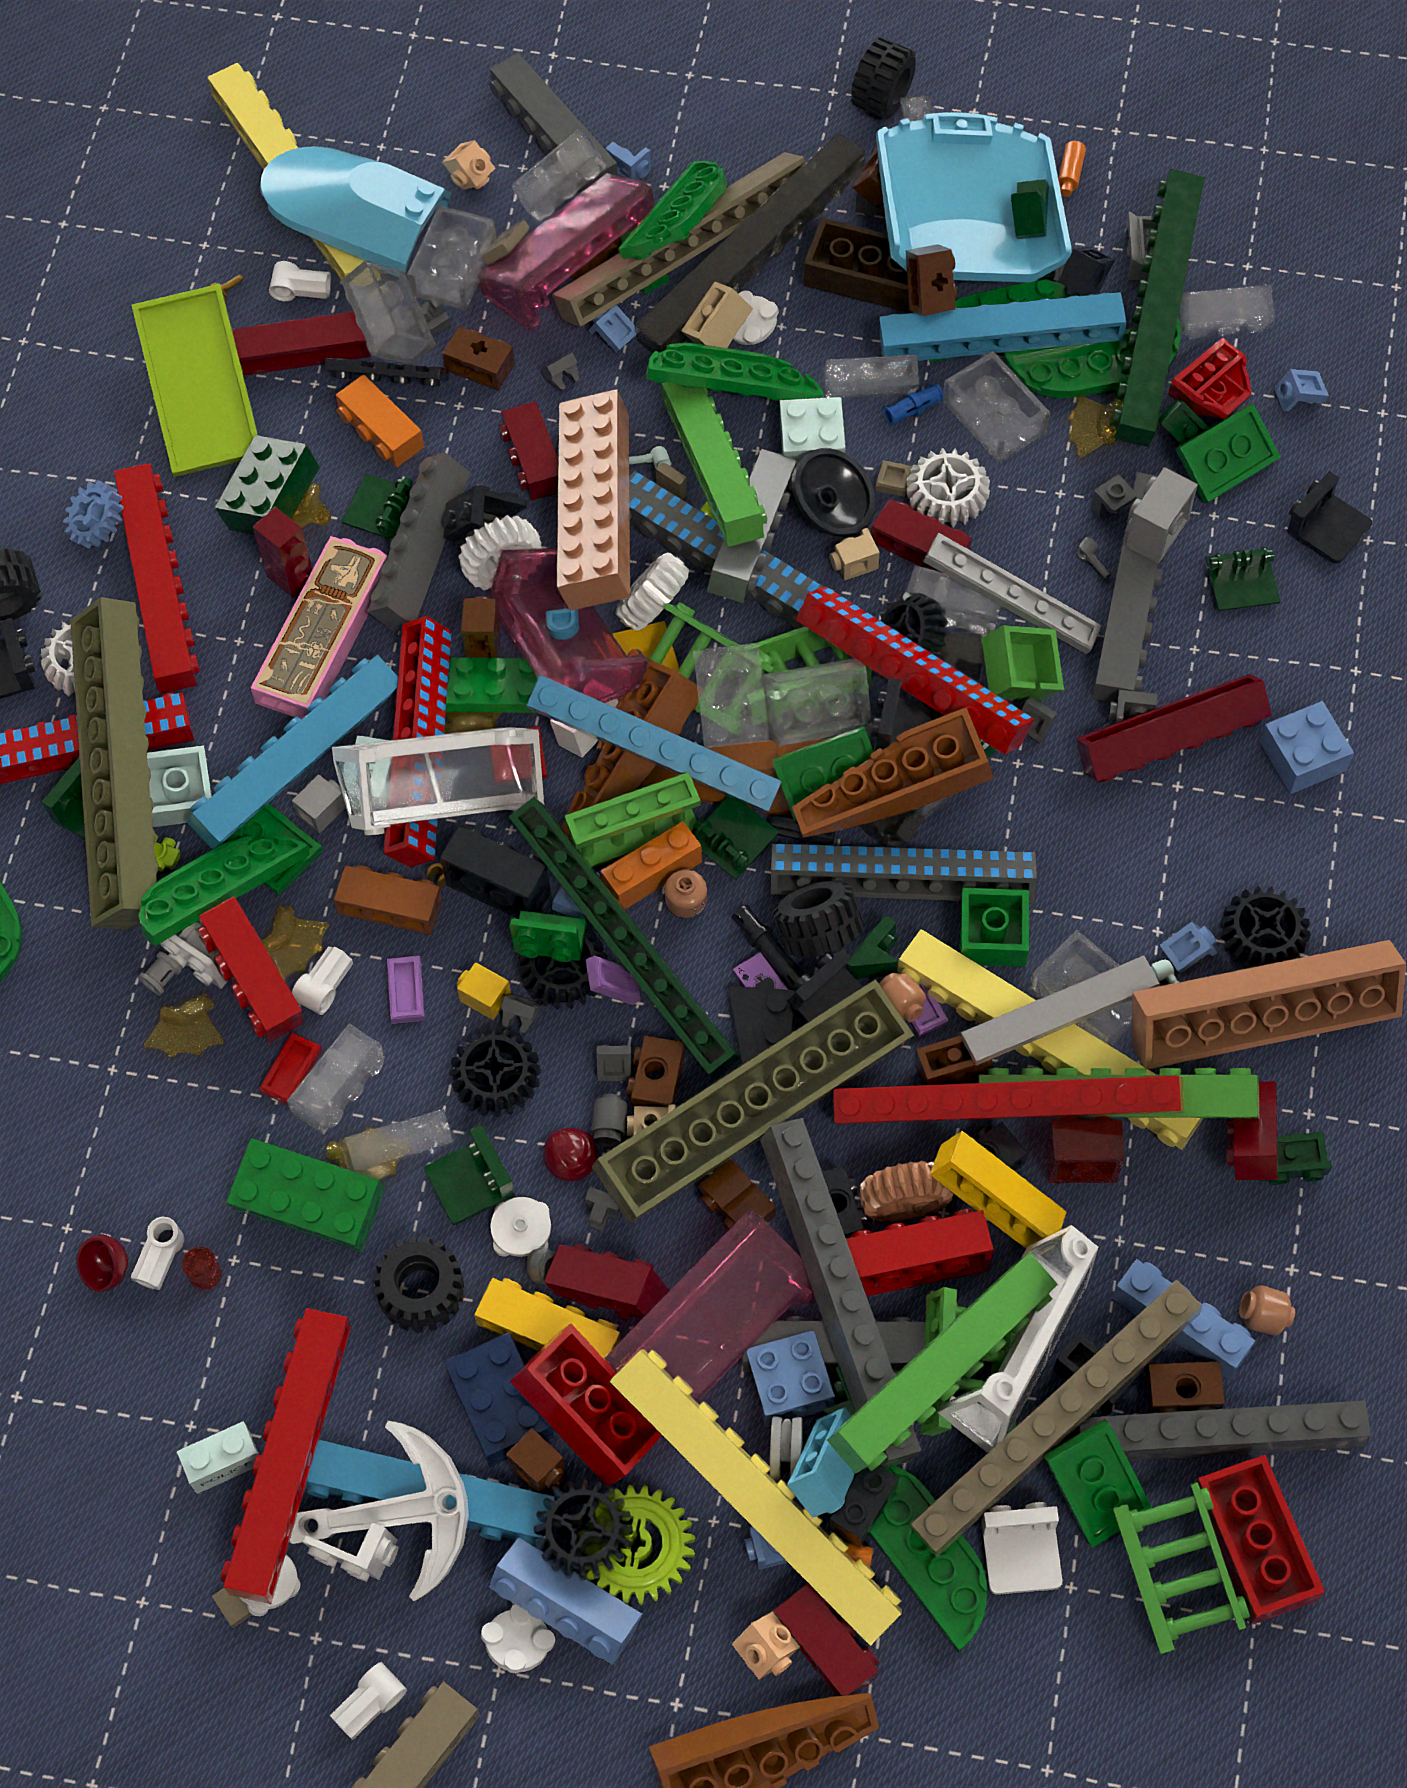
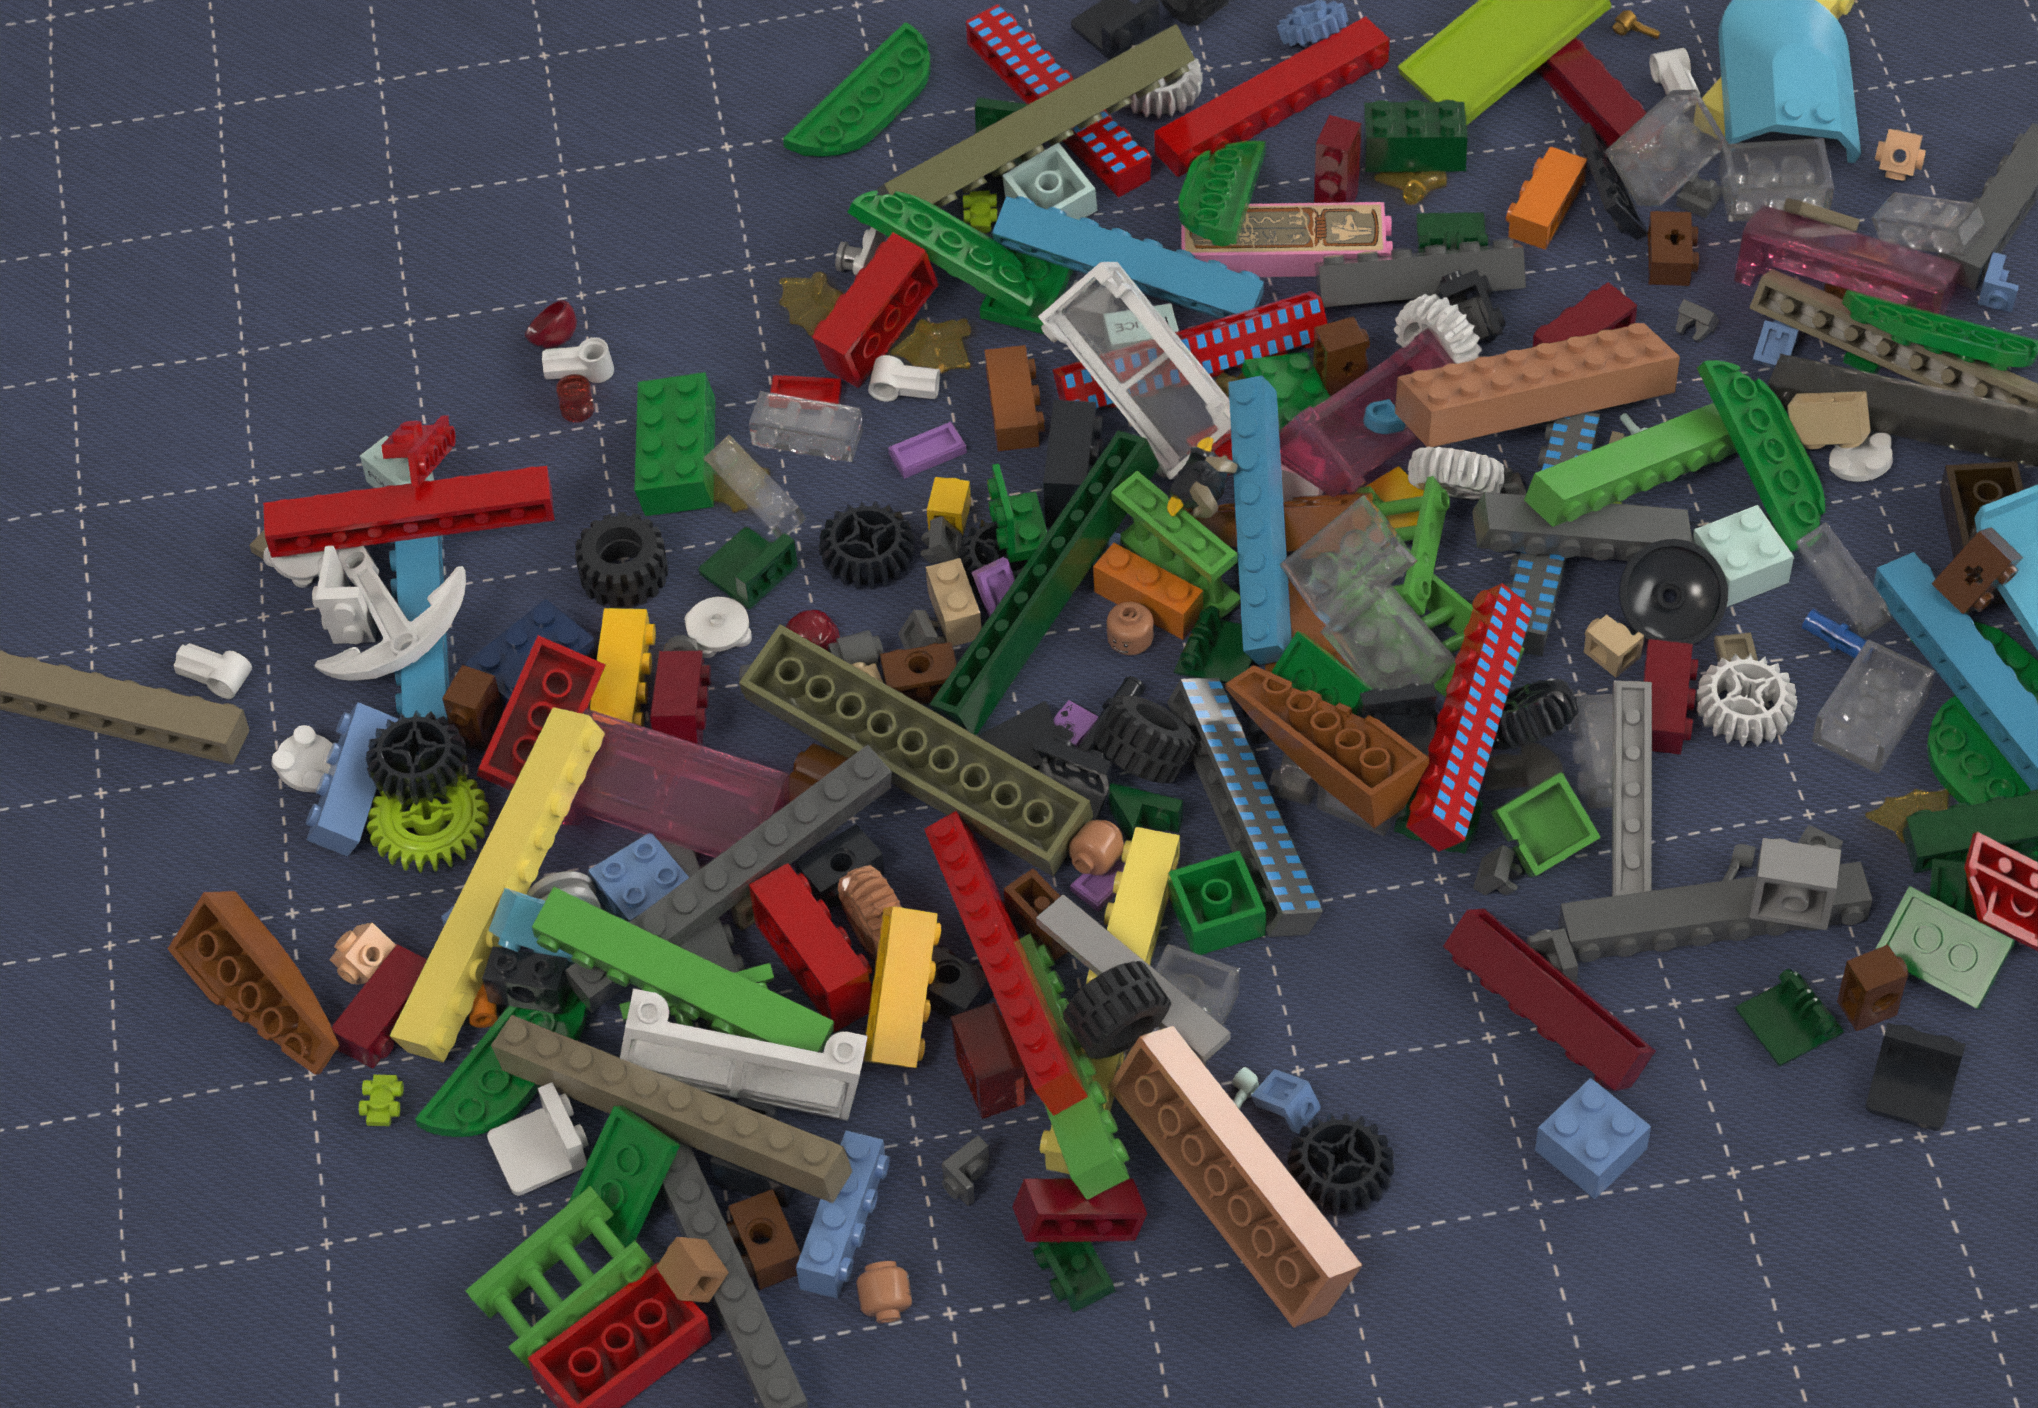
camera: 70 degrees right, 10 degrees down
(214, 1424) = (422, 445): none -> red bracket
(259, 650) = (1220, 191): none -> green plate
(593, 1021) = (953, 602): none -> tan brick
(606, 770) = (1200, 481): none -> hair
(926, 1679) = (382, 1095): none -> lime piece
(1112, 1025) = (1116, 1009): none -> black tyre
(1168, 1206) = (965, 1165): none -> dark grey bracket
(1220, 1450) = (692, 1269): none -> medium nougat brick
(1251, 510) = (1872, 987): none -> reddish brown brick

